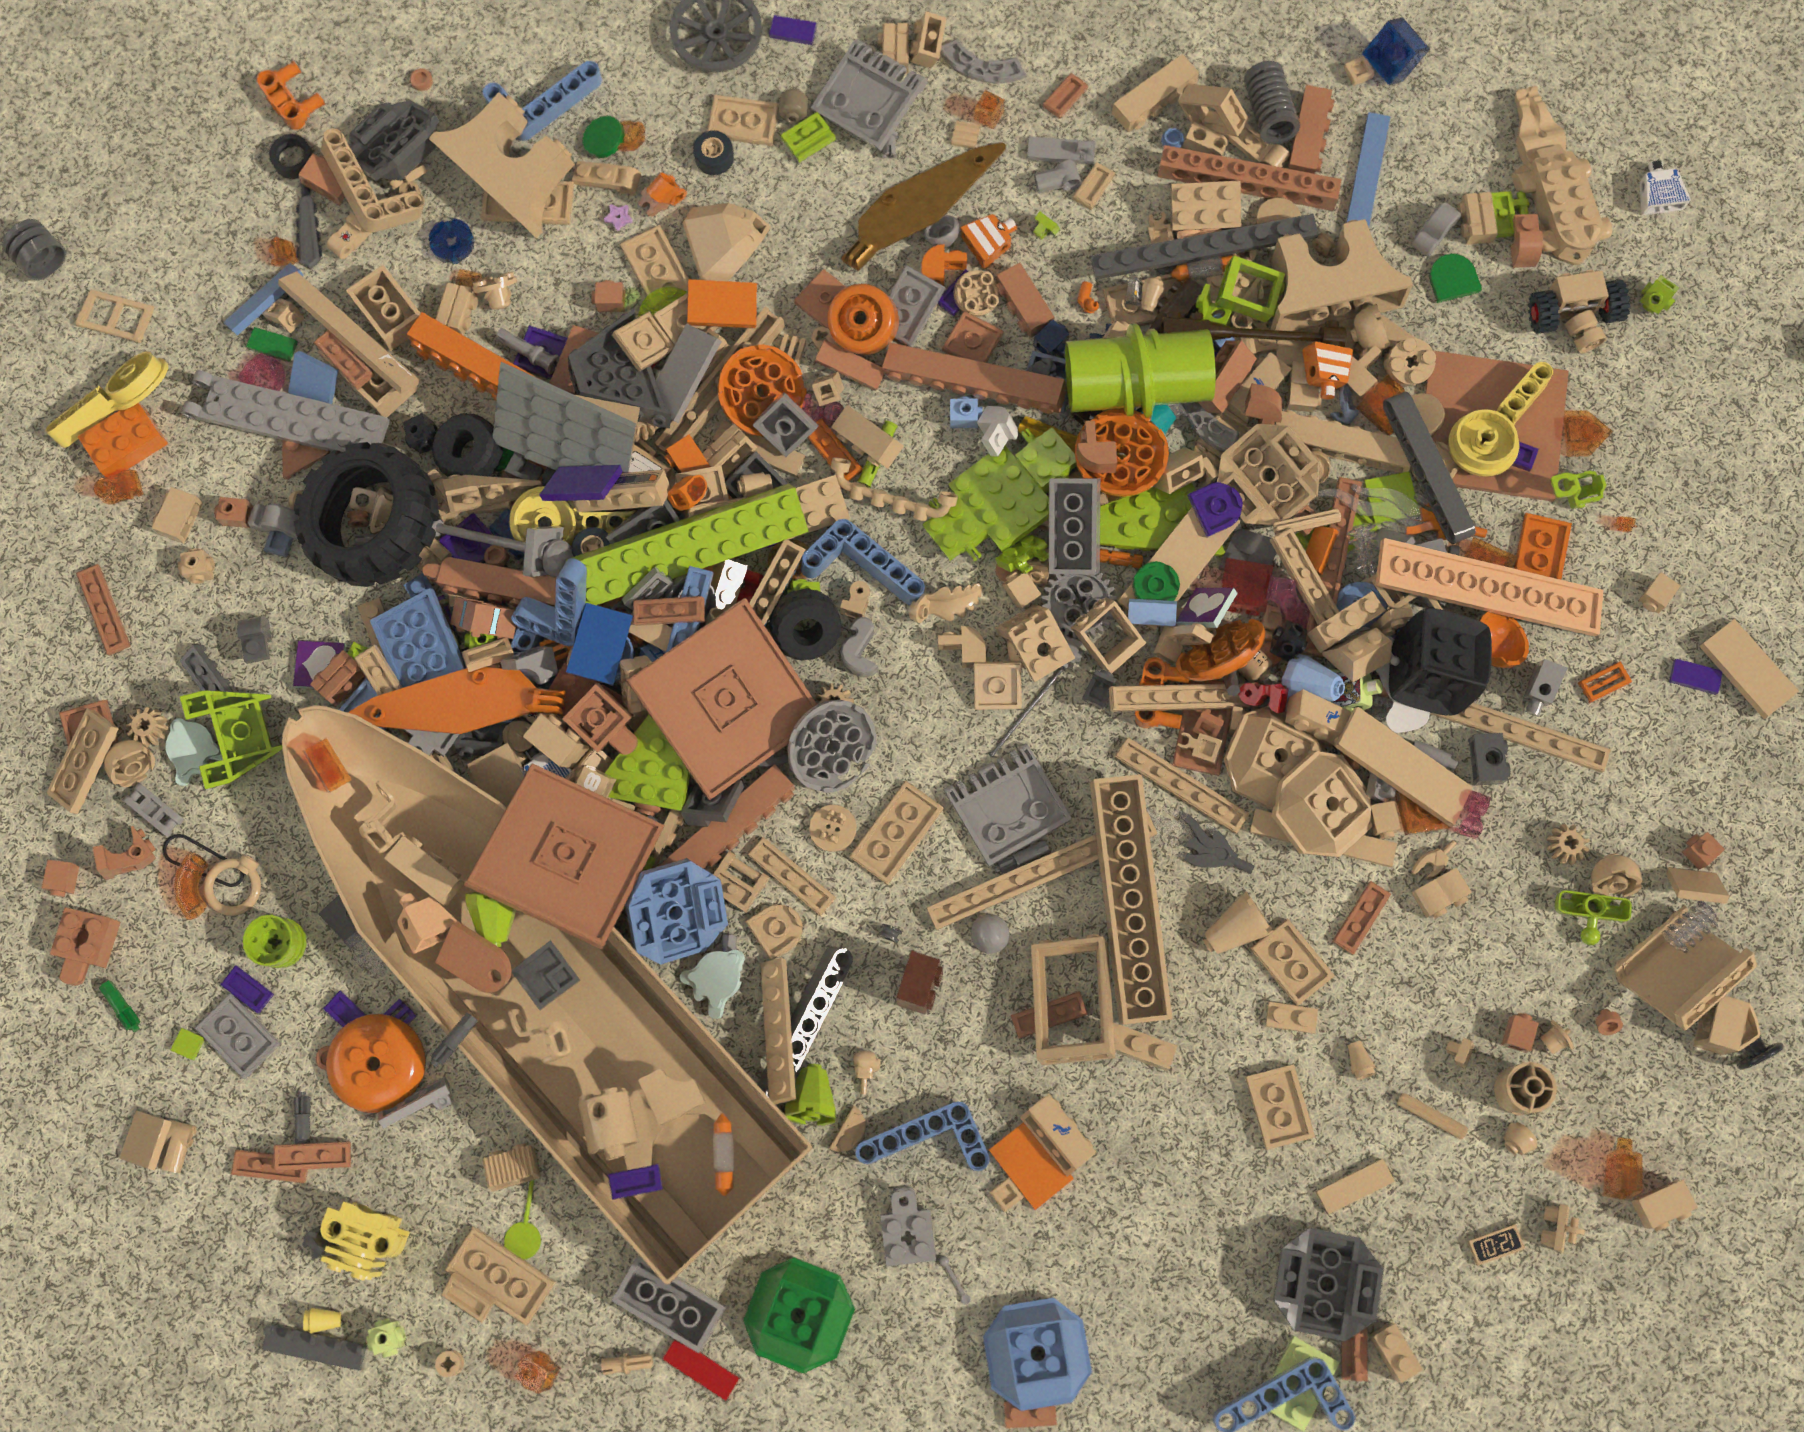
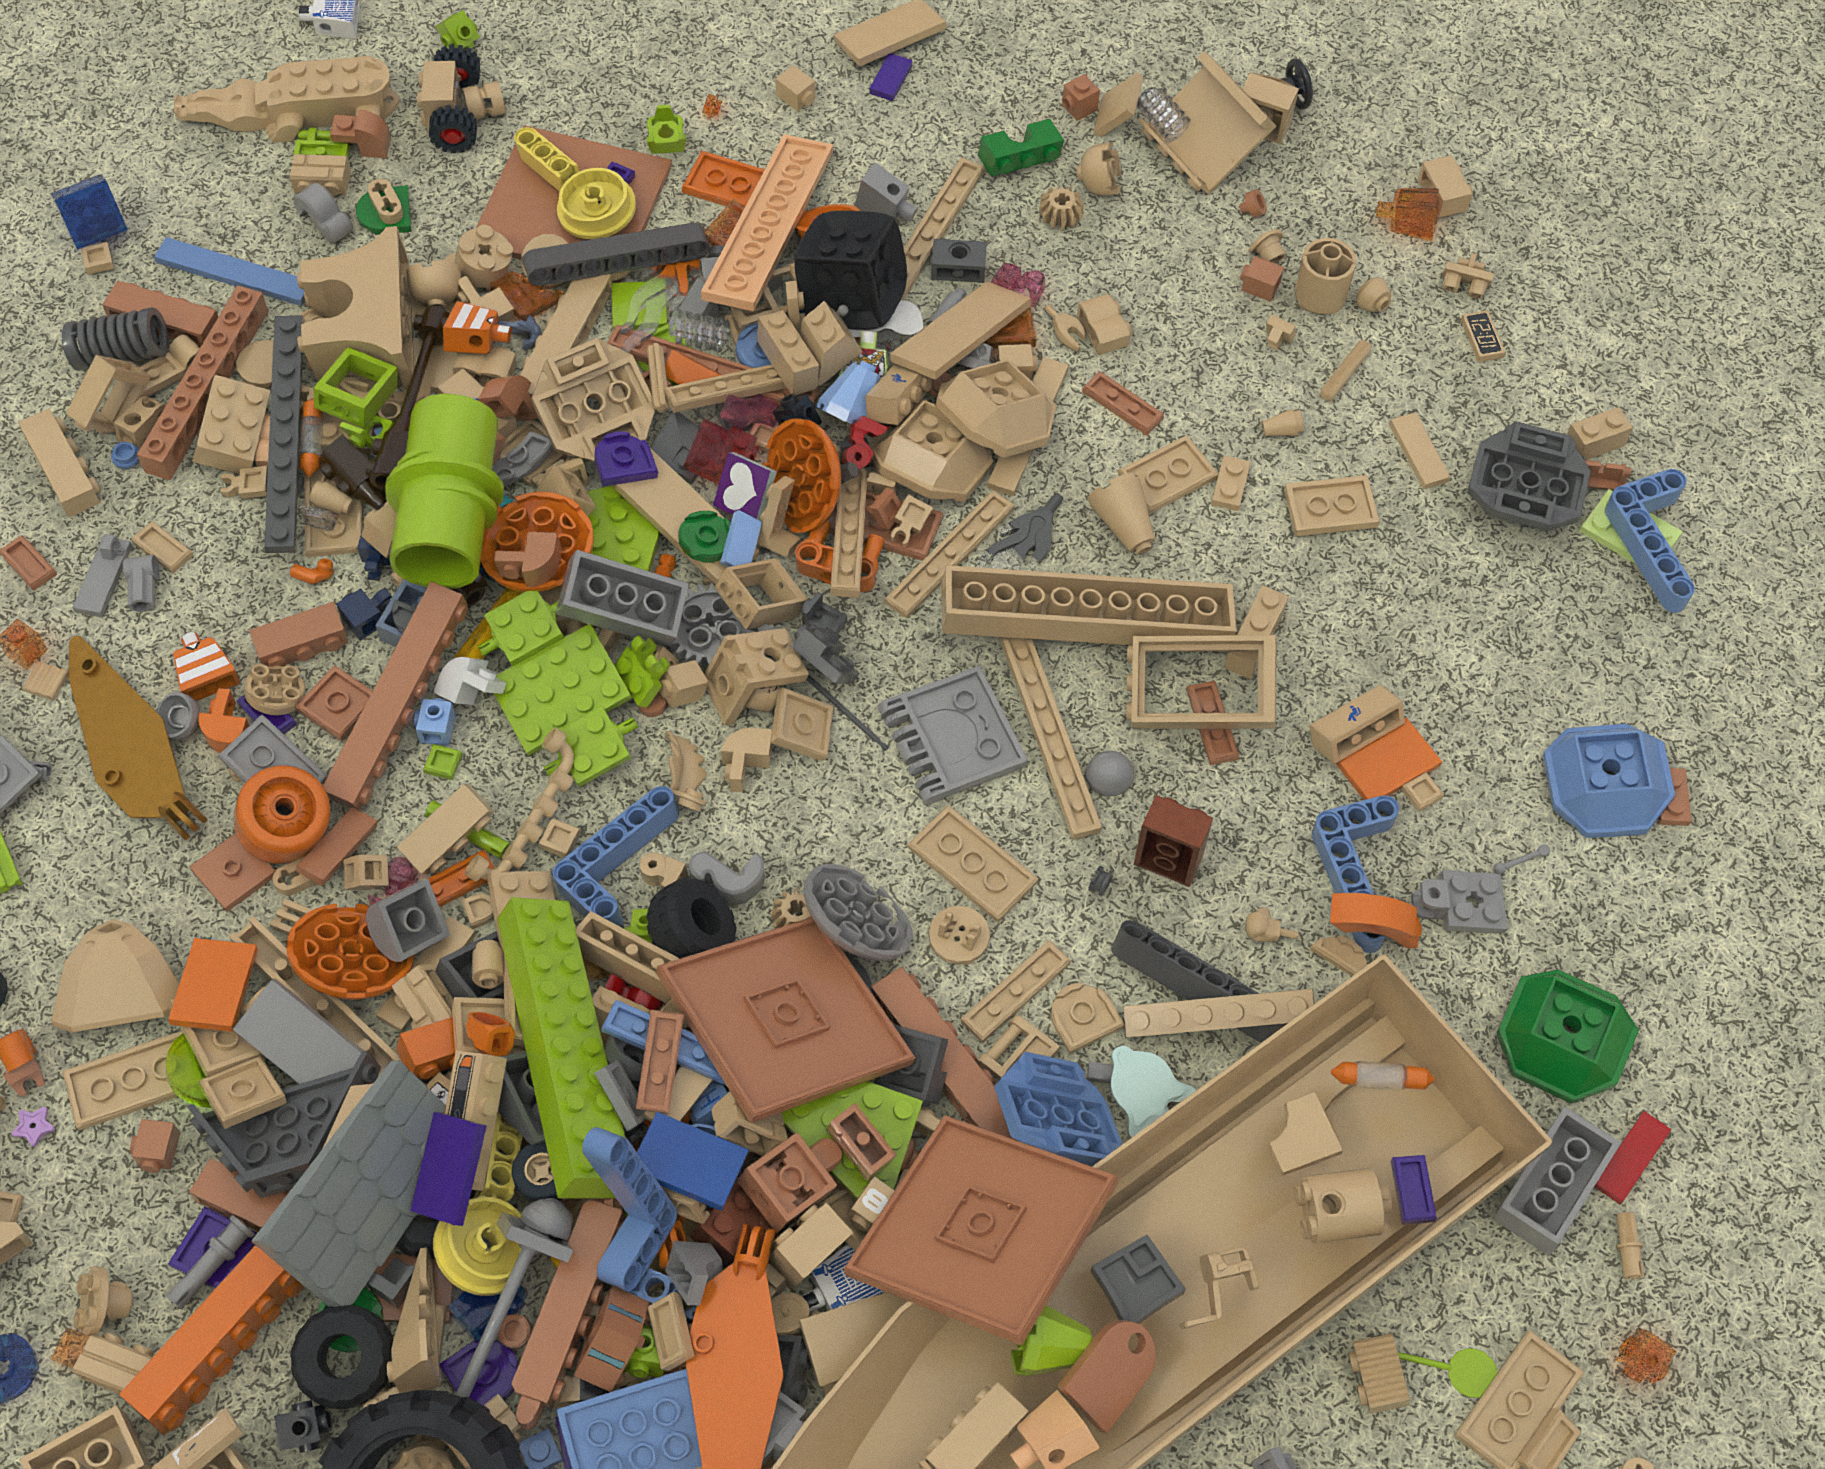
camera: 90 degrees left, 15 degrees down
(453, 1039) = (1235, 1396): dark grey piece -> none
(632, 765) = (861, 1142): none -> nougat brick
(813, 473) = (478, 909): none -> tan tile
(813, 1098) = (1307, 973): lime cone -> none
(871, 1153) = (1376, 915): none -> orange arch
(877, 521) = (559, 838): none -> tan plate
(934, 426) = (442, 762): none -> lime tile
(1022, 858) = (1021, 726): dark grey piece -> none
(1045, 226) = (203, 602): lime tile -> none
(1057, 692) = (822, 650): none -> dark grey plate
(1460, 278) = (380, 203): none -> tan beam
(1579, 907) = (1133, 195): lime piece -> none
(1583, 433) = (600, 124): clear orange plate -> none
(1588, 690) = (900, 165): orange tile -> none
(1615, 786) = (1002, 155): none -> green arch

